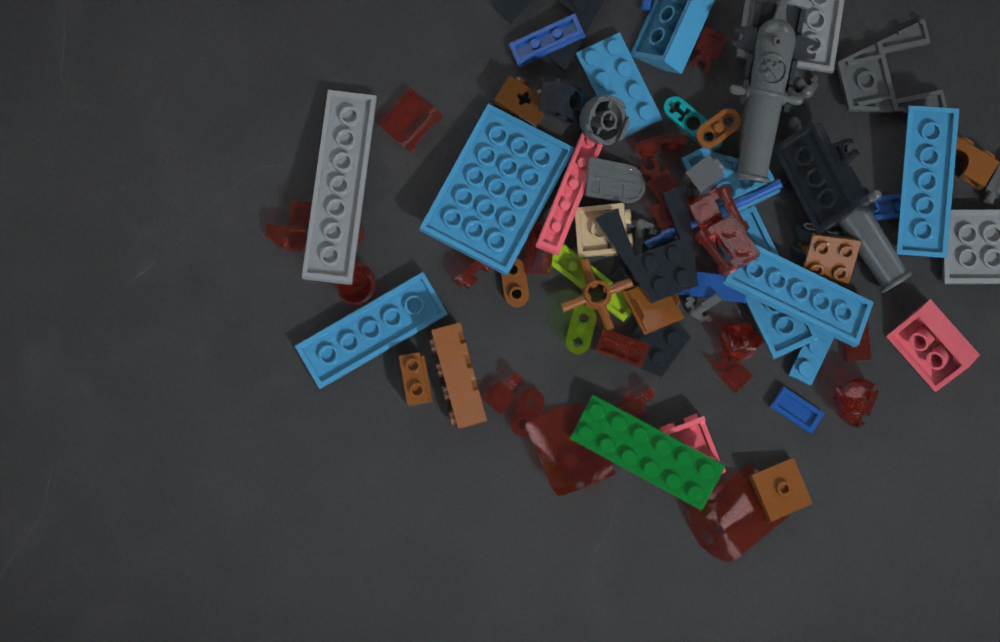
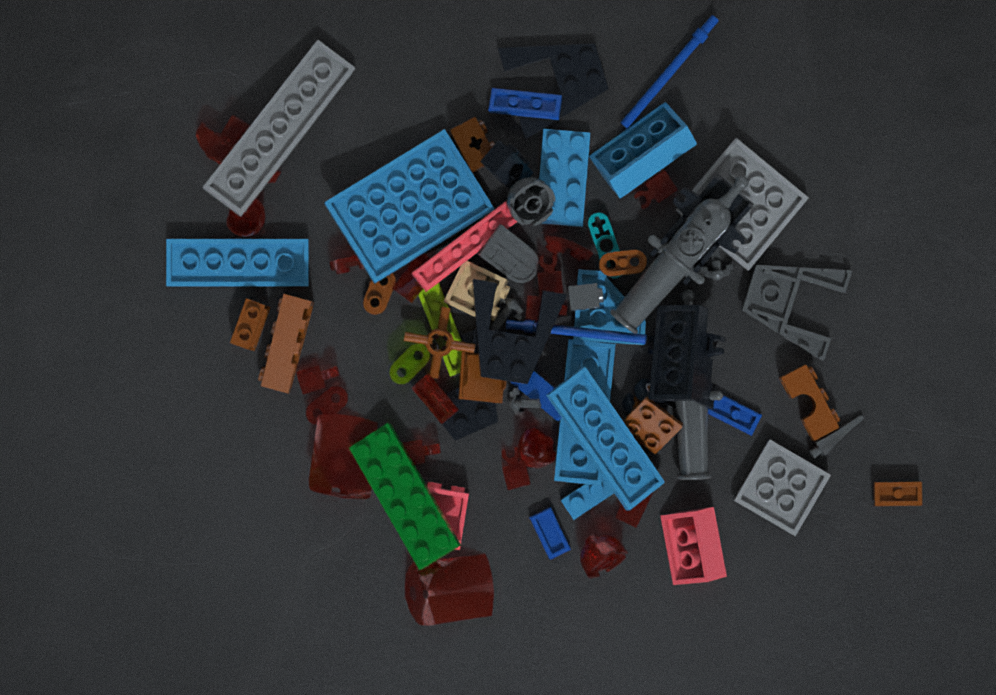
camera: 25 degrees right, 5 degrees up
(403, 117) = (368, 98): clear red plate -> none
(707, 212) = (570, 336): clear red plate -> none
(733, 240) = (576, 366): clear red plate -> none
(780, 490) = (496, 590): dark orange plate -> none
(927, 181) = (768, 409): dark azure plate -> none

